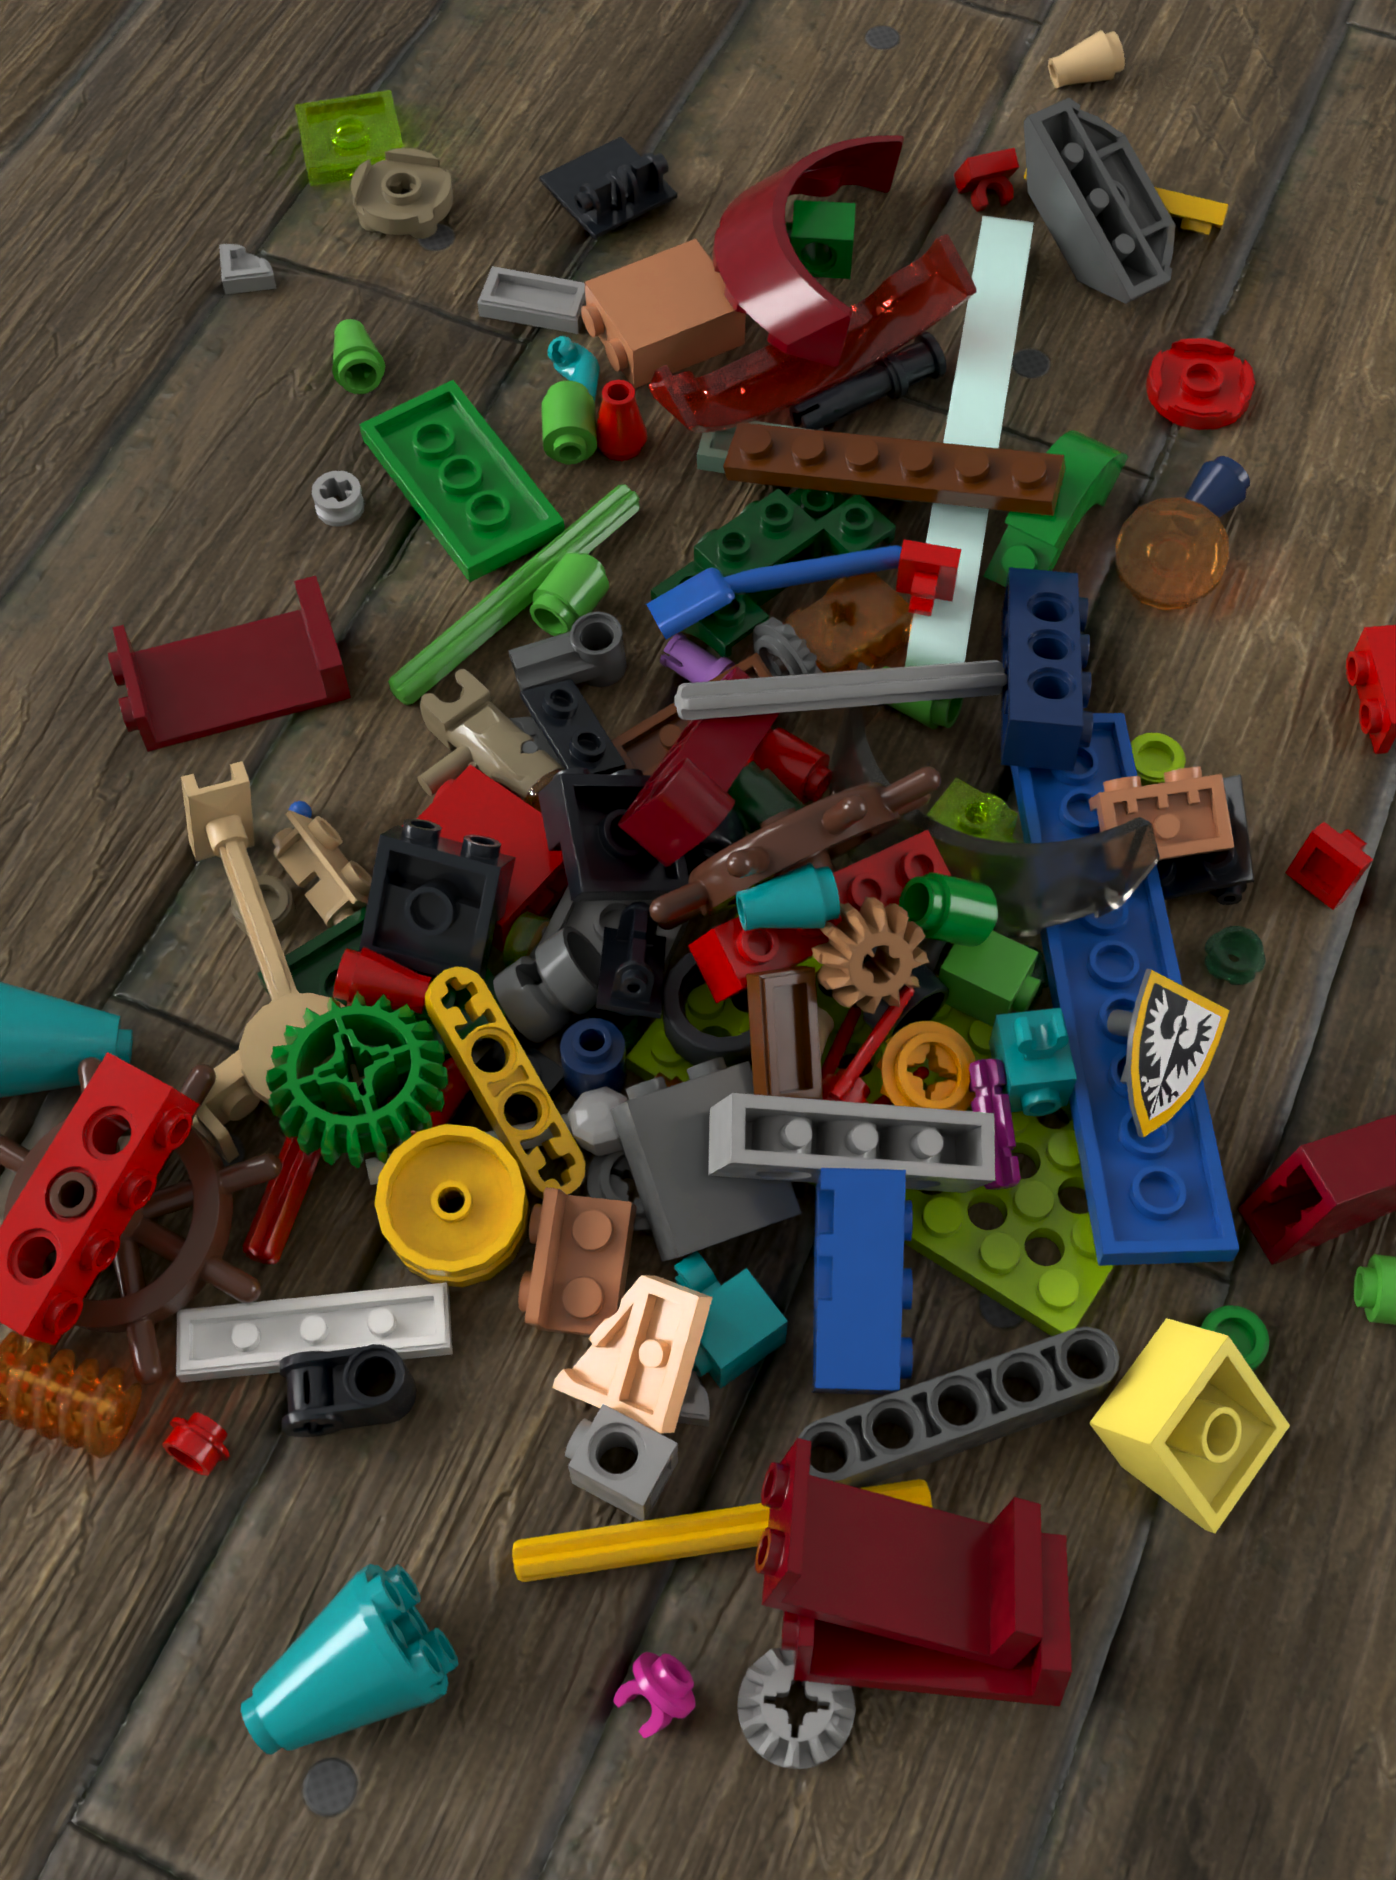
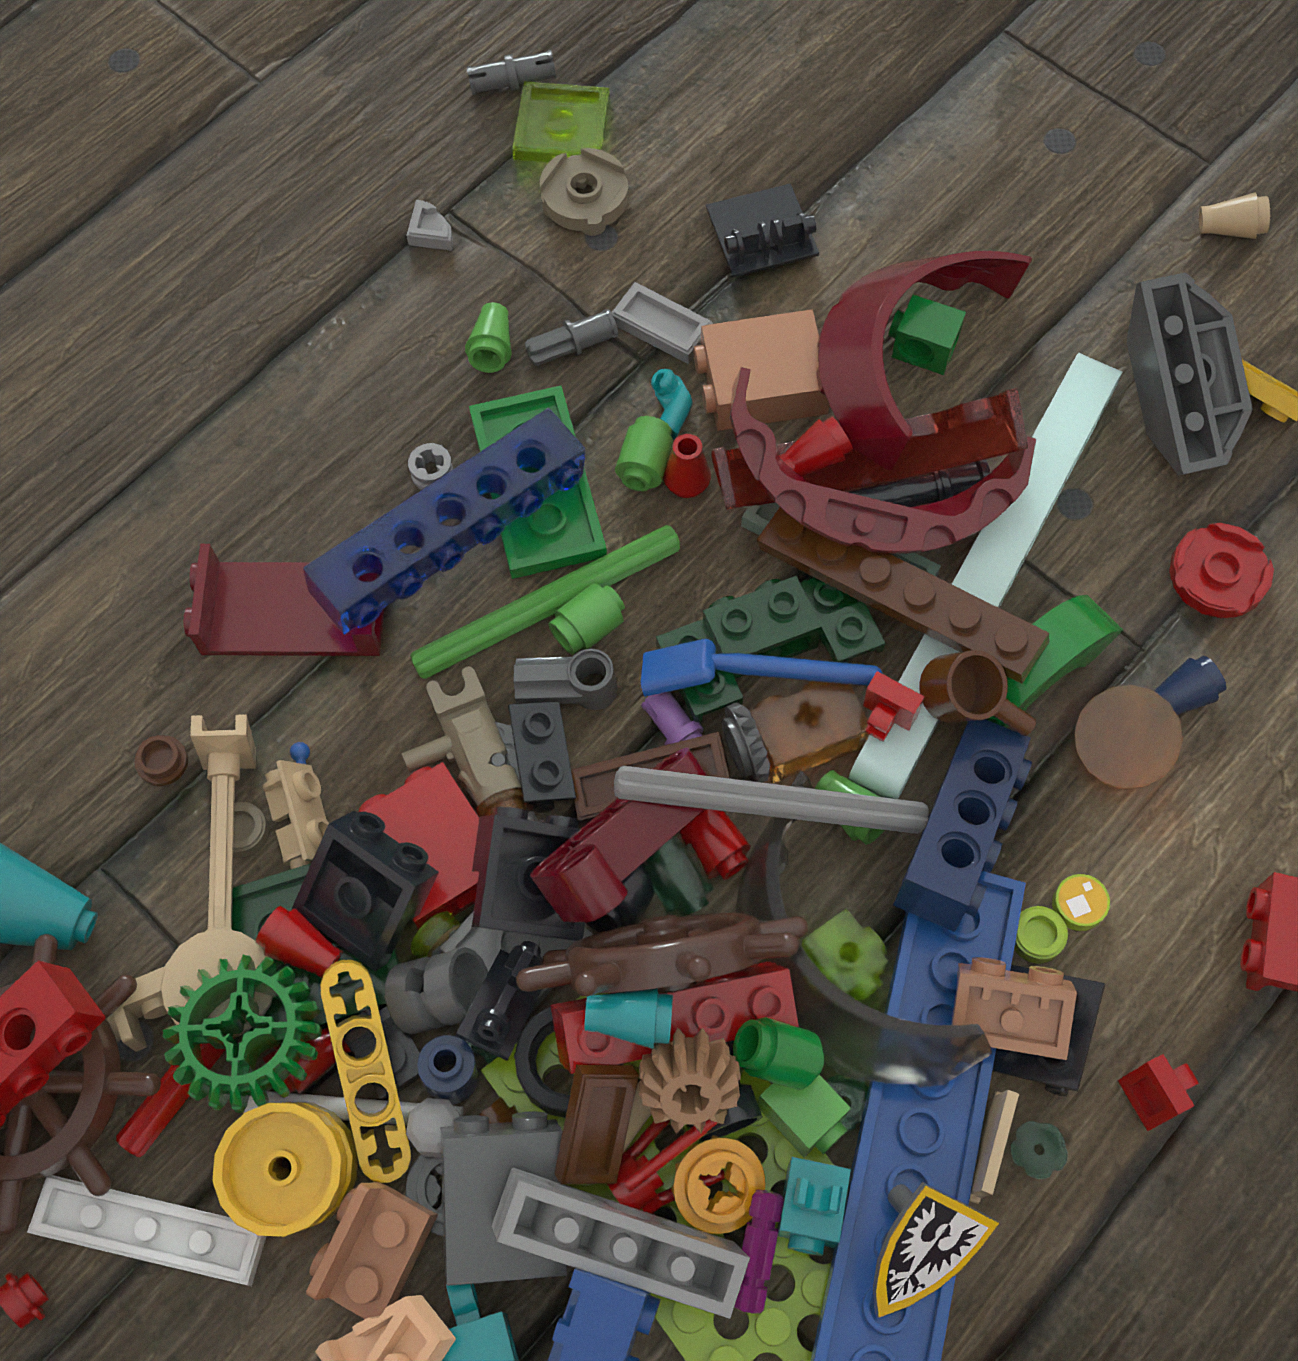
camera: 20 degrees right, 5 degrees up
(144, 862) = (161, 760): none -> reddish brown plate
(277, 98) = (511, 72): none -> dark grey pin
(330, 1389) = (141, 1293): black piece -> none
(382, 530) = (417, 521): none -> clear blue brick
(445, 335) = (571, 338): none -> dark grey axle
(755, 361) = (818, 448): none -> red cone
(827, 406) = (869, 521): none -> dark red windscreen
(988, 172) = (1100, 308): red tile -> none
(1002, 533) = (969, 689): none -> reddish brown piece
(1185, 718) = (1081, 902): none -> tile
(1191, 941) = (993, 1139): none -> tan piece

